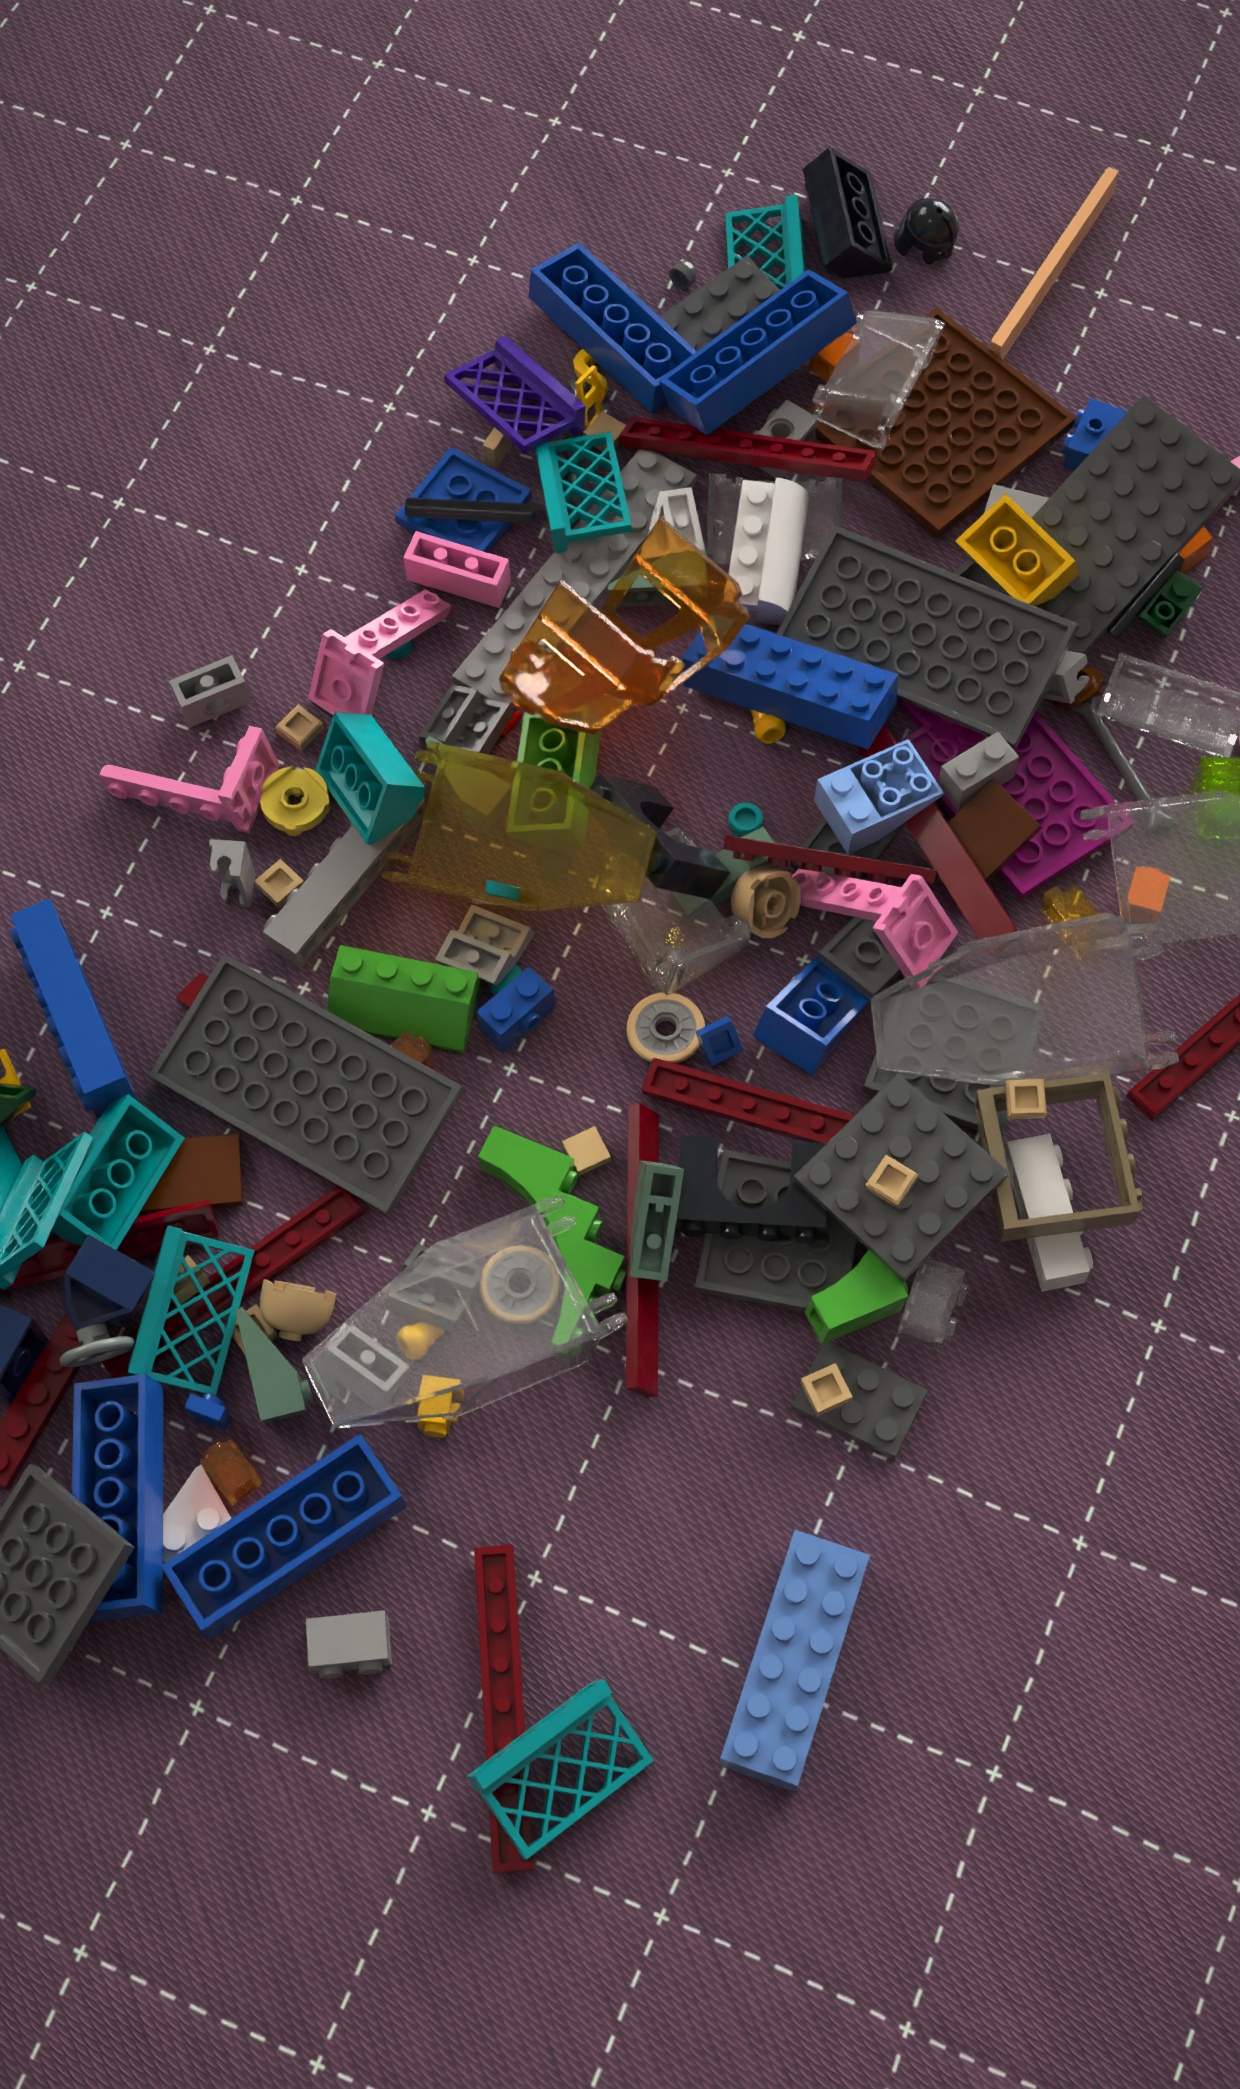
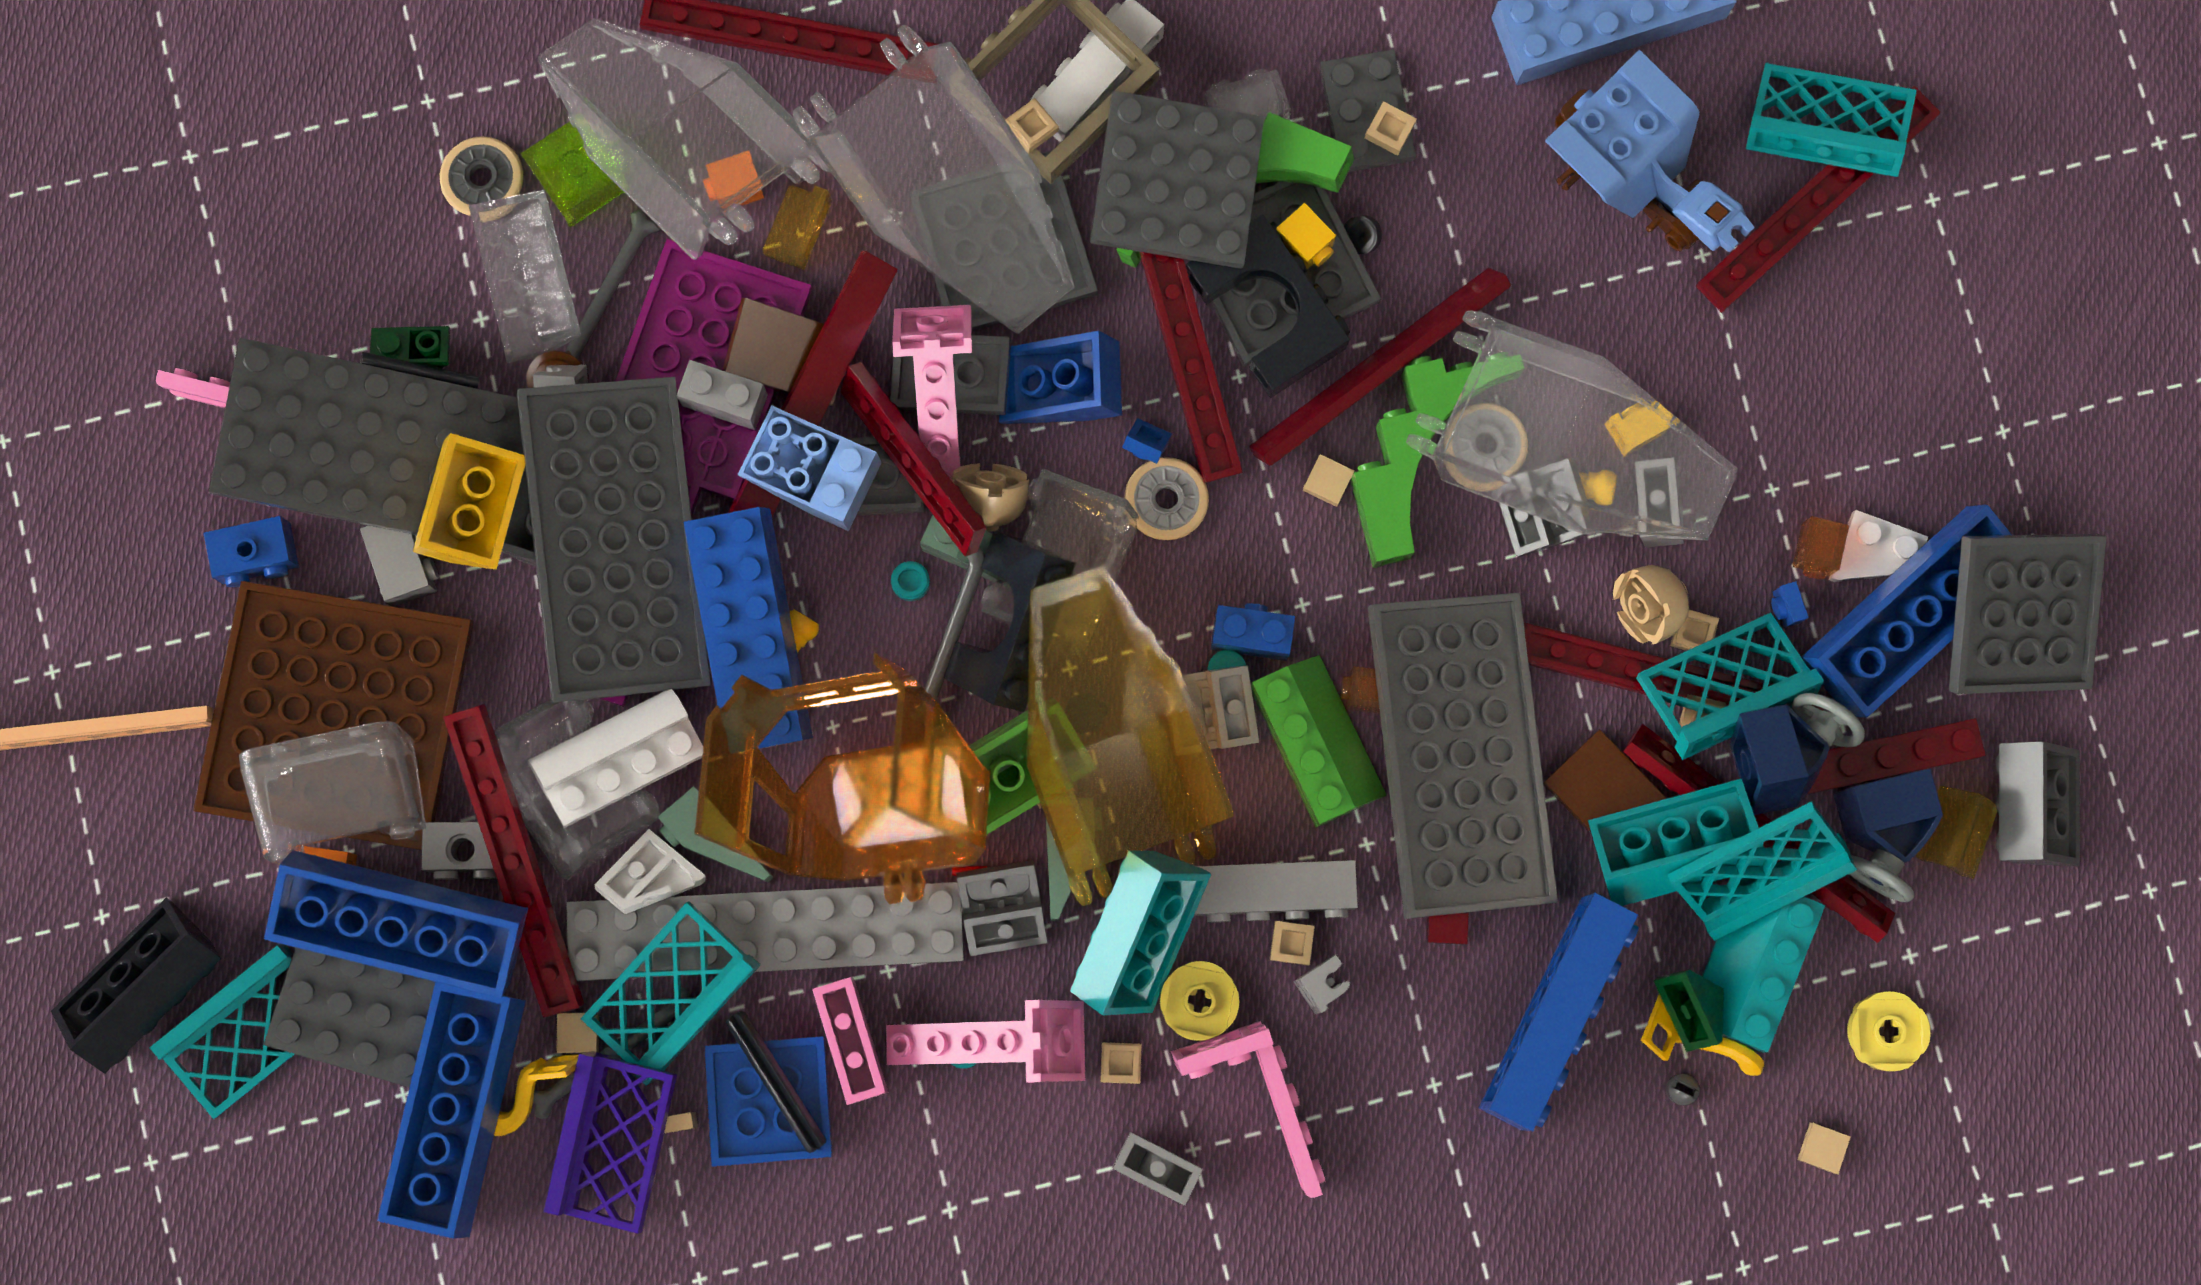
camera: 135 degrees left, 15 degrees up
(274, 1380) = (1721, 574): sand green slope -> none
(284, 1536) = (1839, 457): blue brick -> none
(348, 1643) = (1870, 347): light grey brick -> none
(502, 890) = (1161, 718): teal tile -> none
(644, 766) = (955, 622): none -> dark grey piece
(654, 1219) = (1357, 360): sand green slope -> none
(662, 1562) = (1631, 147): none -> medium blue piece
(683, 274) = (325, 1100): dark grey hinge -> none
(758, 1316) = (1364, 233): none -> black tile
(784, 1256) = (1307, 236): none -> yellow brick
(891, 1181) = (1196, 173): tan tile -> none
(930, 228) = (102, 897): black helmet -> none

